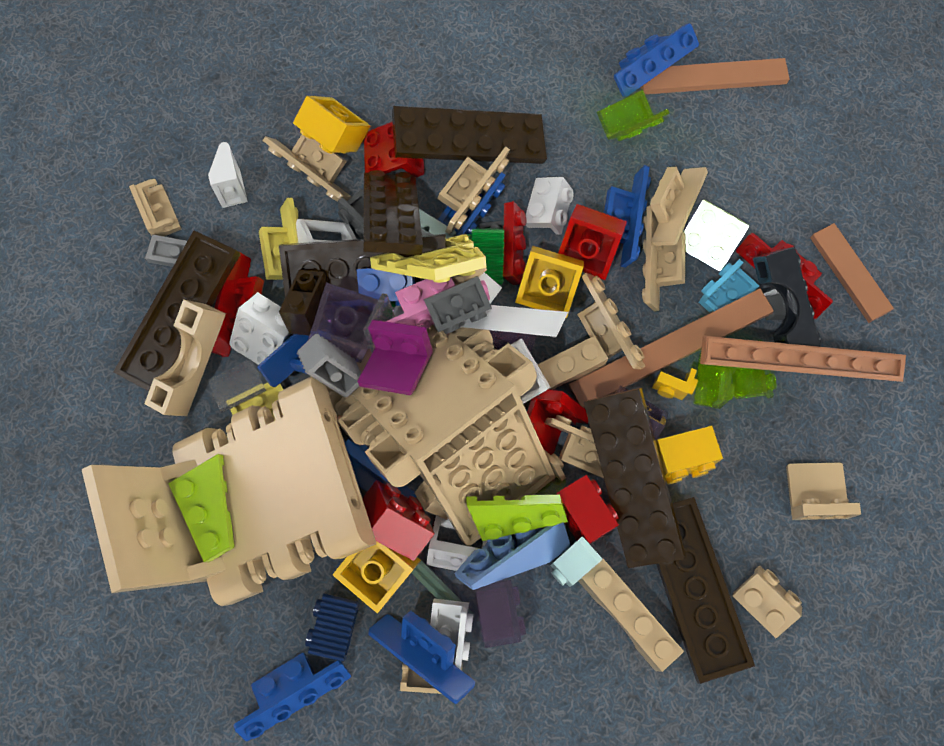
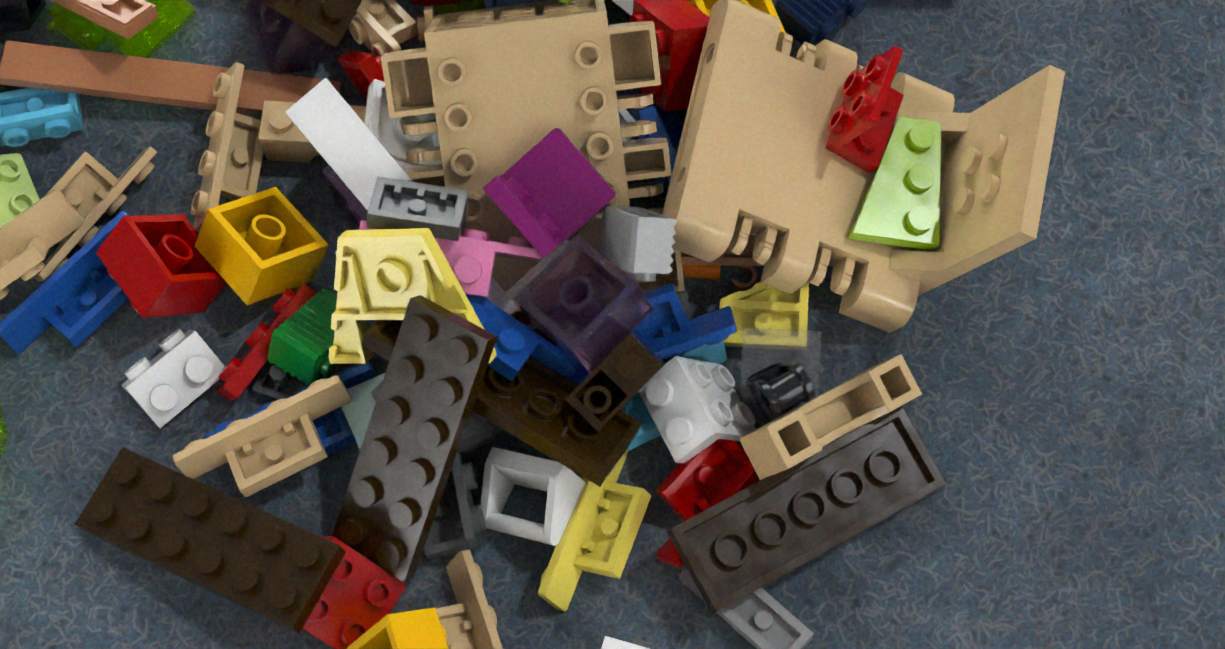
camera: 140 degrees left, 5 degrees down
(224, 360) = (780, 388): none -> black piece
(244, 529) = (867, 112): none -> red bracket
(670, 386) = (195, 29): yellow bracket -> none

